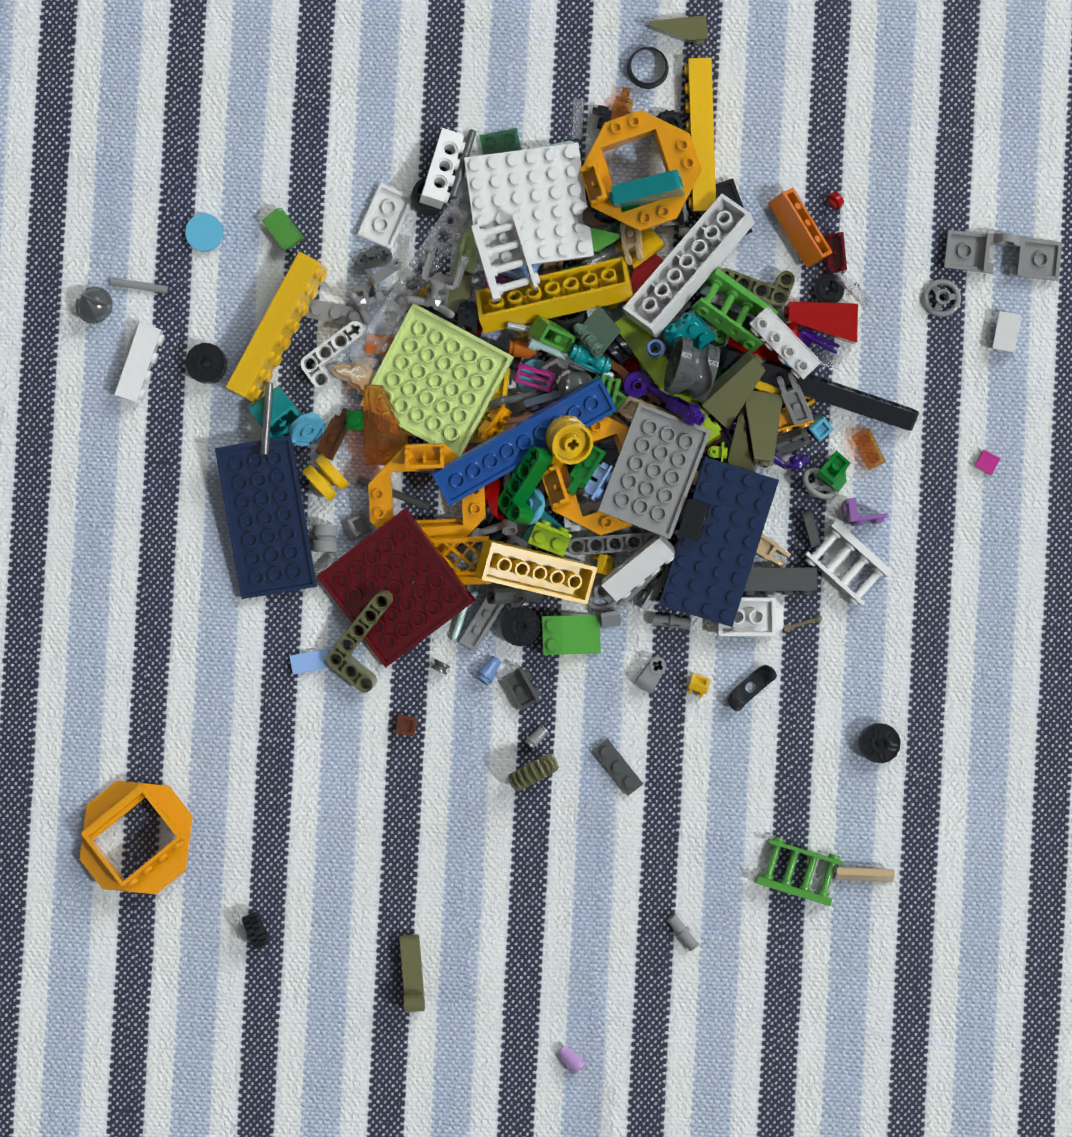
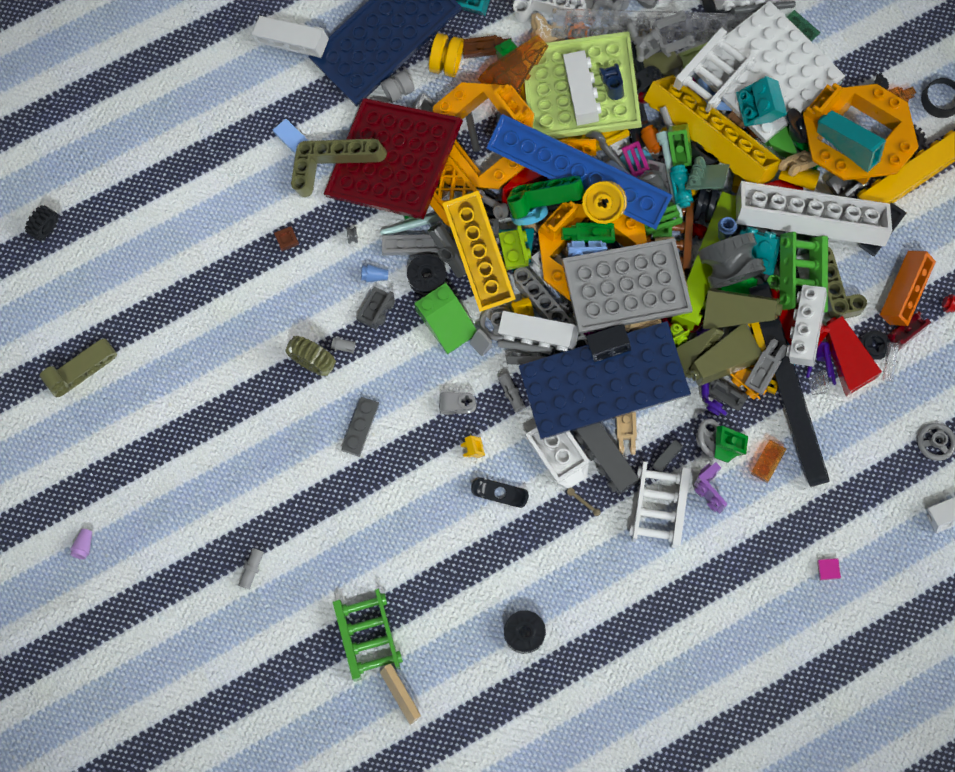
camera: 60 degrees right, 15 degrees down
(113, 805) = (55, 120): light orange hinge -> none
(214, 604) = (290, 36): none -> white brick
(307, 429) = (474, 20): medium azure tile -> none
(443, 384) = (581, 87): none -> white brick
(453, 353) = (612, 81): none -> dark blue piece
(561, 238) = (761, 102): none -> teal slope
(577, 119) = (862, 70): clear pin -> none
(688, 411) = (695, 280): dark purple piece -> none
(820, 427) = (757, 410): medium azure slope -> none

